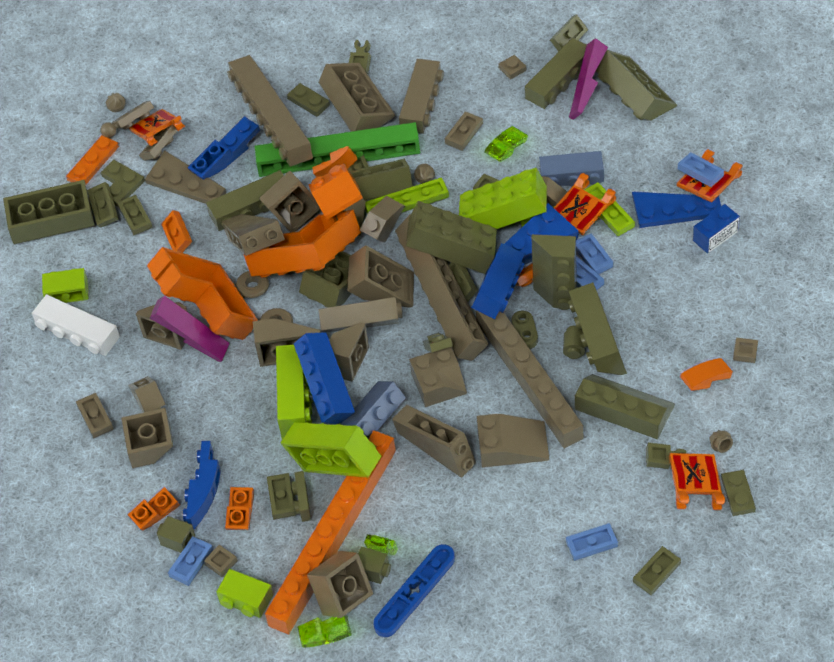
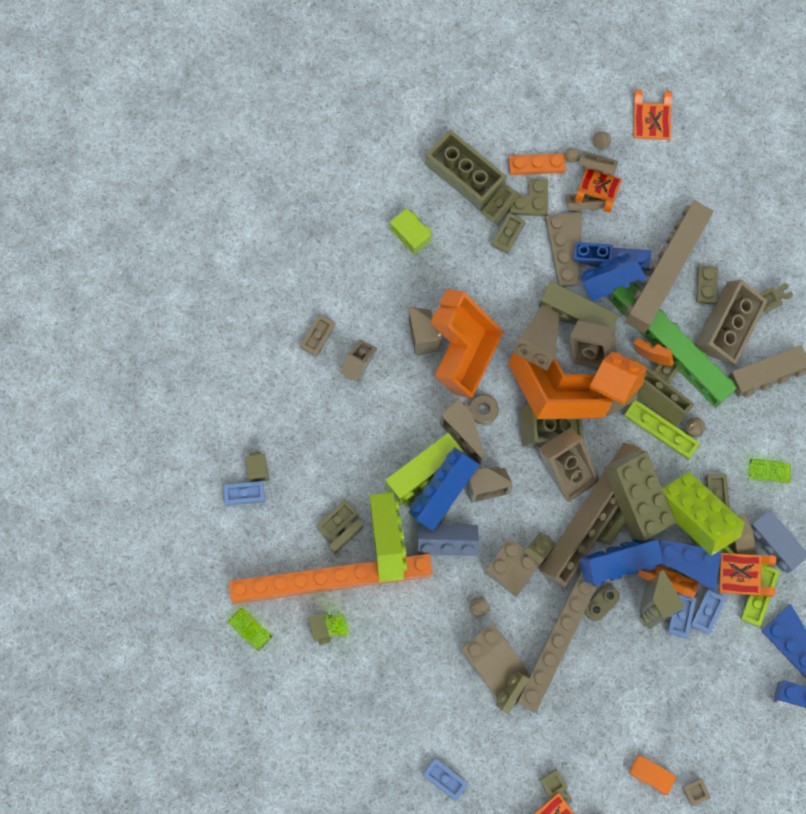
camera: 45 degrees right, 20 degrees up
(75, 325) = (382, 264): white brick -> none
(130, 59) = (652, 119): none -> flag
(147, 437) = (320, 389): dark tan slope -> none
(151, 512) = (269, 435): orange slope -> none
(176, 232) = (512, 276): orange plate -> none
(184, 324) = (423, 354): magenta slope -> none
(203, 487) = (300, 461): blue slope -> none
(220, 560) = (257, 514): dark tan plate -> none
(239, 508) = (309, 497): orange slope -> none
(241, 151) = (611, 275): none -> blue wedge
(244, 593) = (241, 552): lime brick -> none
(248, 292) = (496, 370): dark tan piece -> none
(340, 584) = (286, 618): dark tan slope -> none
(372, 313) = (527, 472): dark tan slope -> none
(382, 219) = (625, 426): dark tan slope -> none
(426, 577) = (301, 673): blue piece -> none
(436, 439) = (455, 602): dark tan slope -> none
(454, 420) = (479, 607): none -> dark tan plate
(463, 131) = (759, 429): dark tan plate -> none
(551, 439) = (512, 691): none -> olive plate
(572, 343) = (613, 651): olive brick -> none
(596, 330) = (631, 664): olive slope -> none
(623, 405) = (583, 726): olive slope -> none

